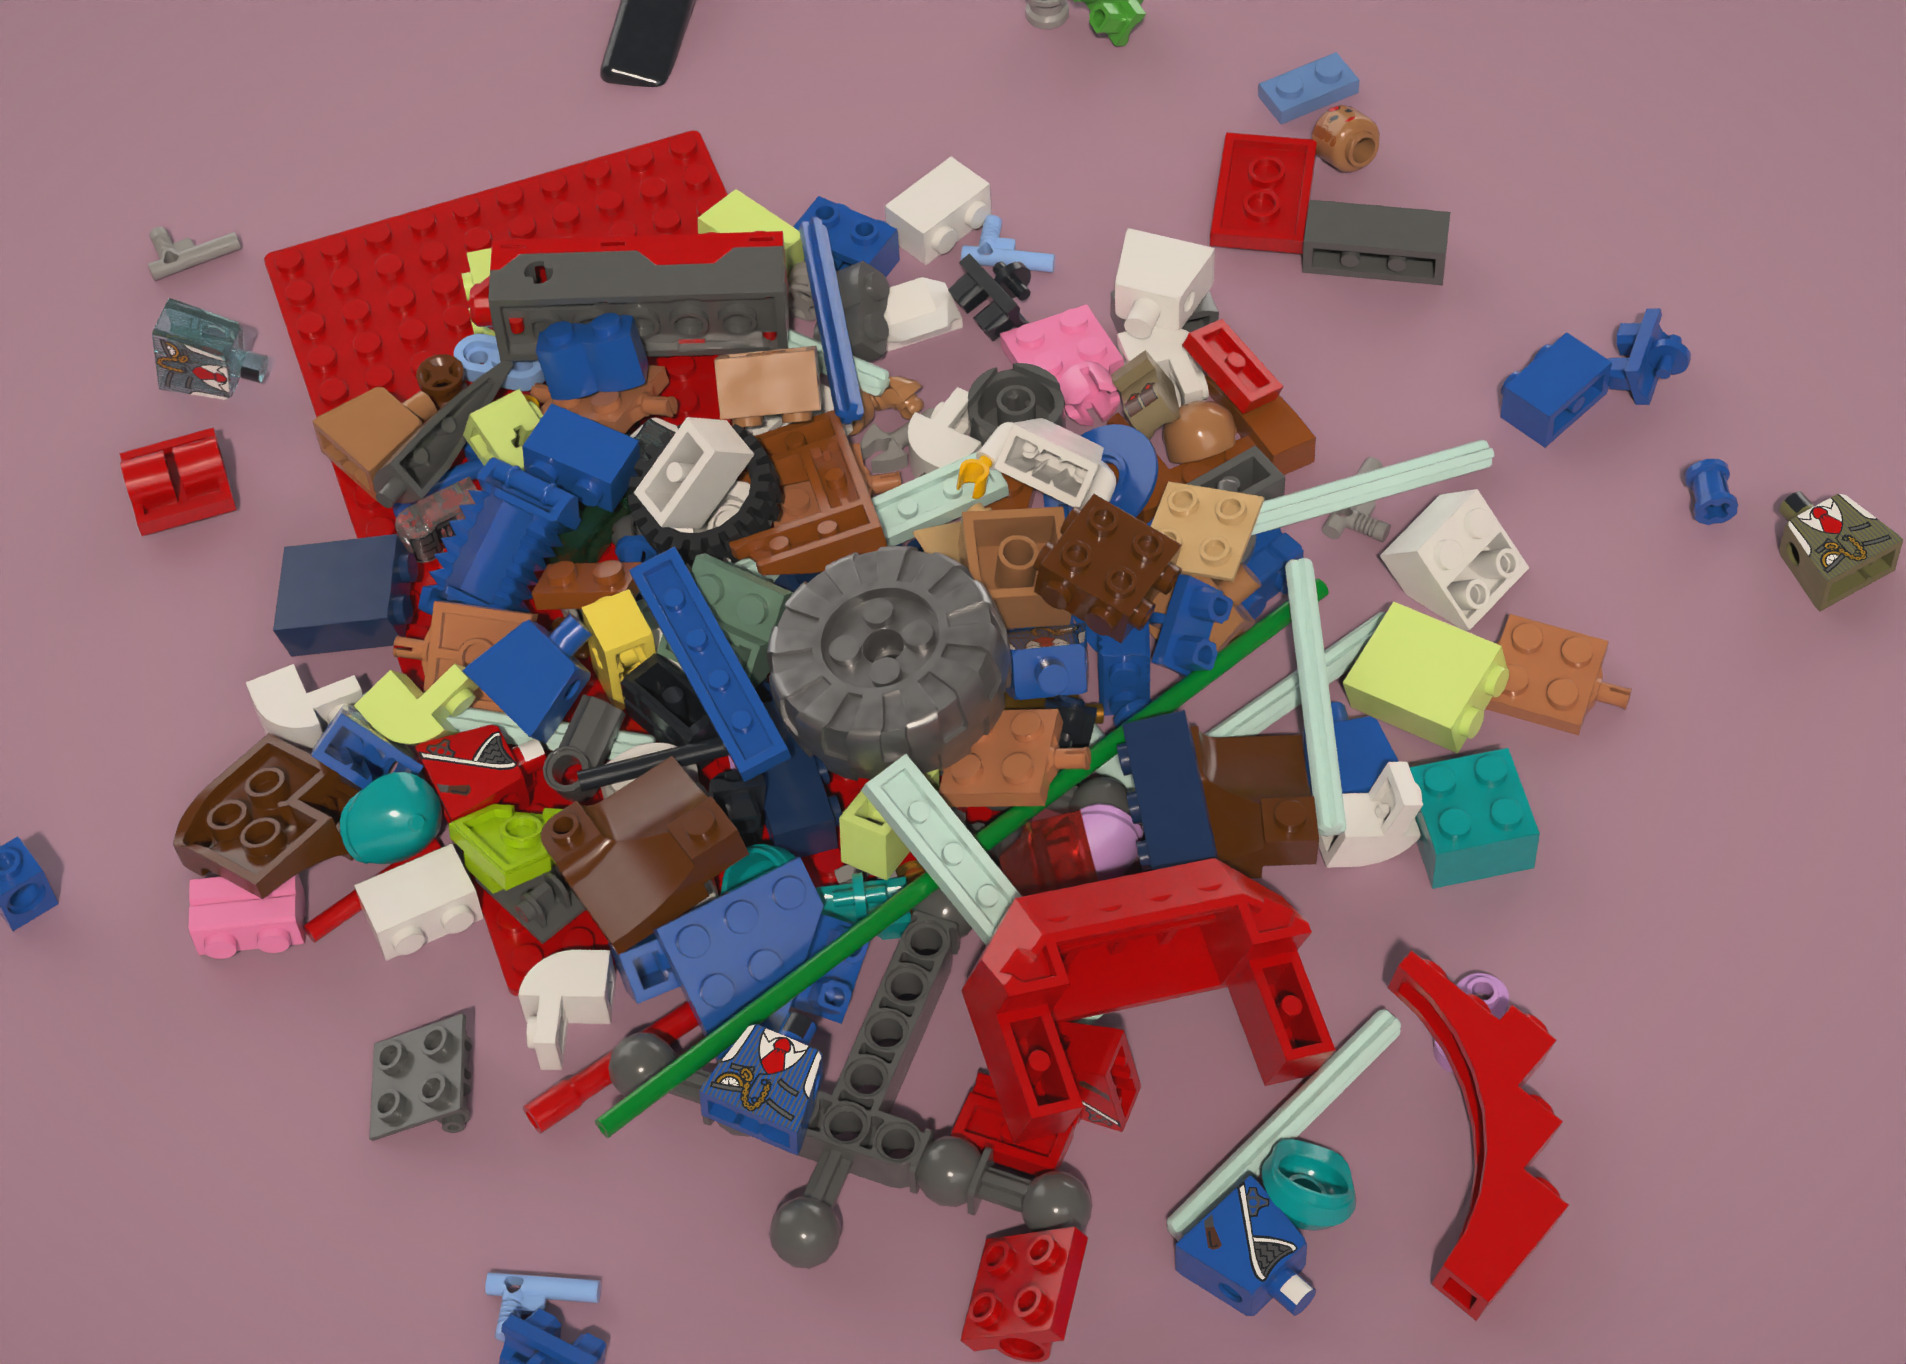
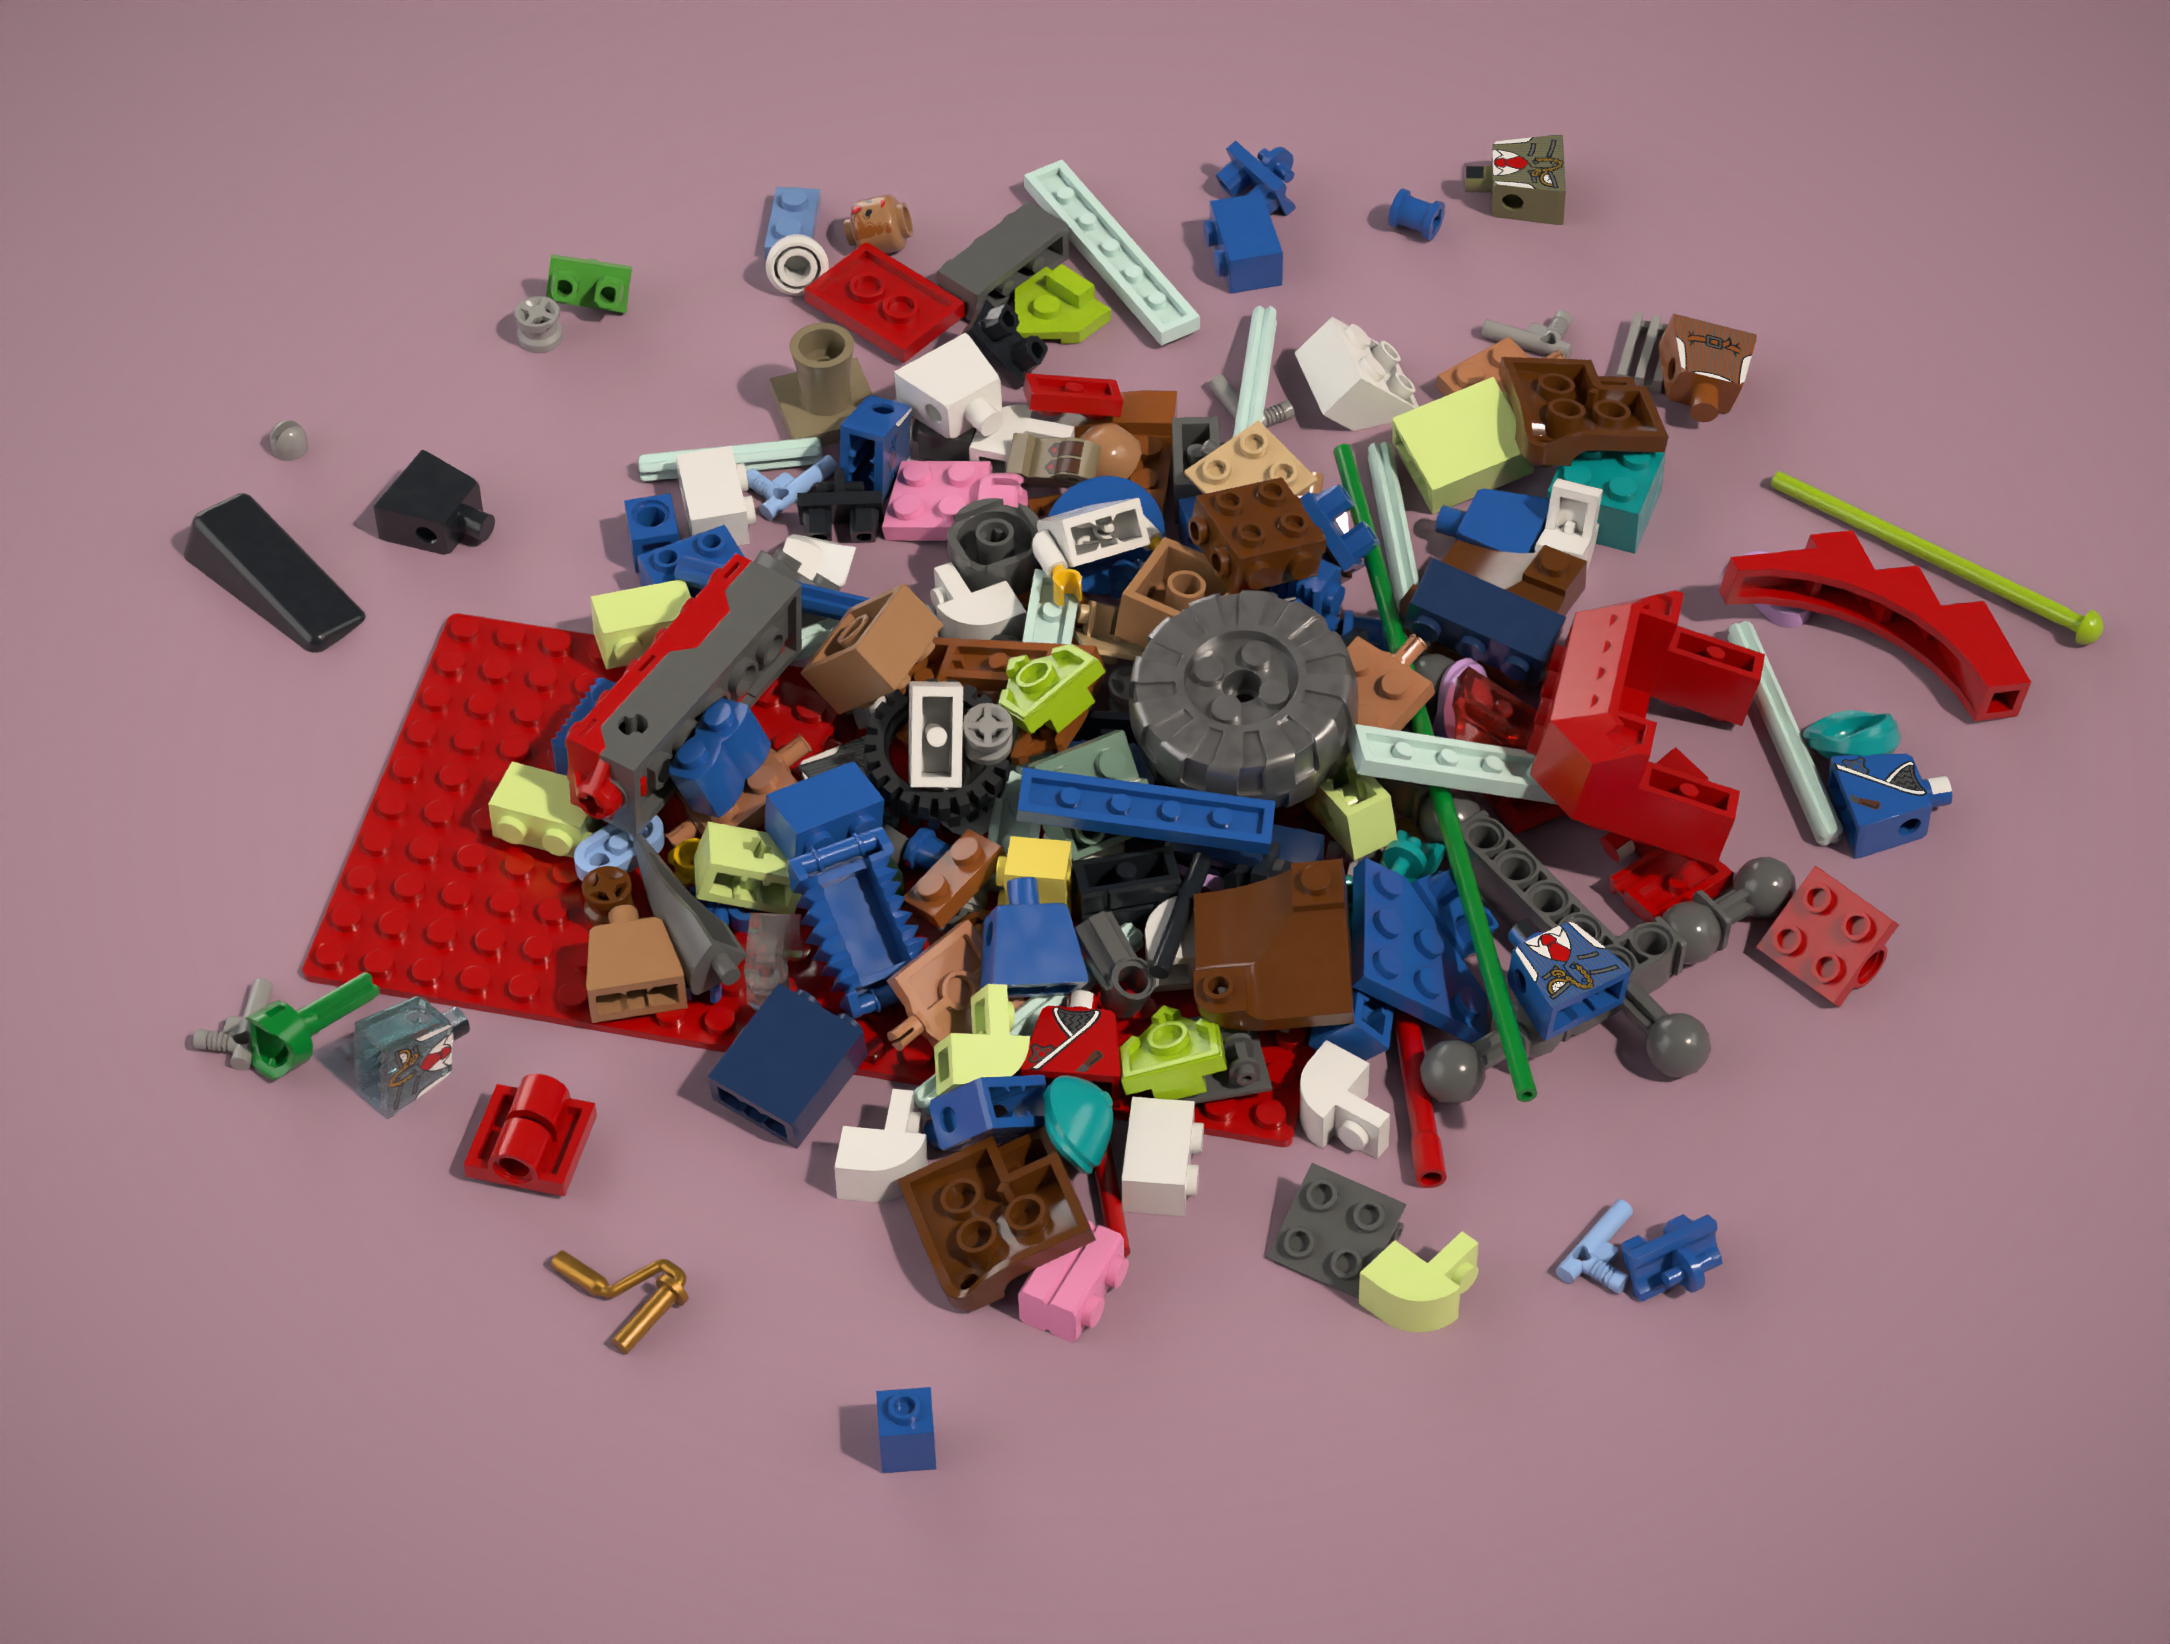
camera: 60 degrees left, 5 degrees down
(80, 651) = (669, 1292): none -> pearl gold piece
(175, 276) = (285, 1034): none -> green piece
(386, 1172) = (1417, 1293): none -> yellowish green brick
(720, 495) = (987, 721): none -> light grey wheel
(791, 51) = (432, 507): none -> black torso
(797, 521) = (1050, 688): none -> lime plate
(870, 187) = (650, 524): none -> blue brick
(1010, 205) = (753, 455): none -> light aqua axle
(1071, 272) = (876, 434): none -> blue torso
(1113, 204) = (824, 387): none -> dark tan plant
(1250, 108) = (795, 263): none -> white brick
(1267, 290) = (1002, 345): none -> black hips
(1315, 697) = (1444, 495): light aqua axle -> none
(1359, 307) = (1059, 306): none -> lime plate
(1460, 307) = (1113, 253): none -> light aqua plate
(1525, 736) = (1572, 410): none -> reddish brown slope
(1635, 1319) = (2087, 627): none -> lime bar
(1643, 665) = (1537, 337): none -> light grey hose
(1695, 755) = (1652, 329): none -> light grey tile
(1703, 815) = (1704, 365): none -> dark orange torso

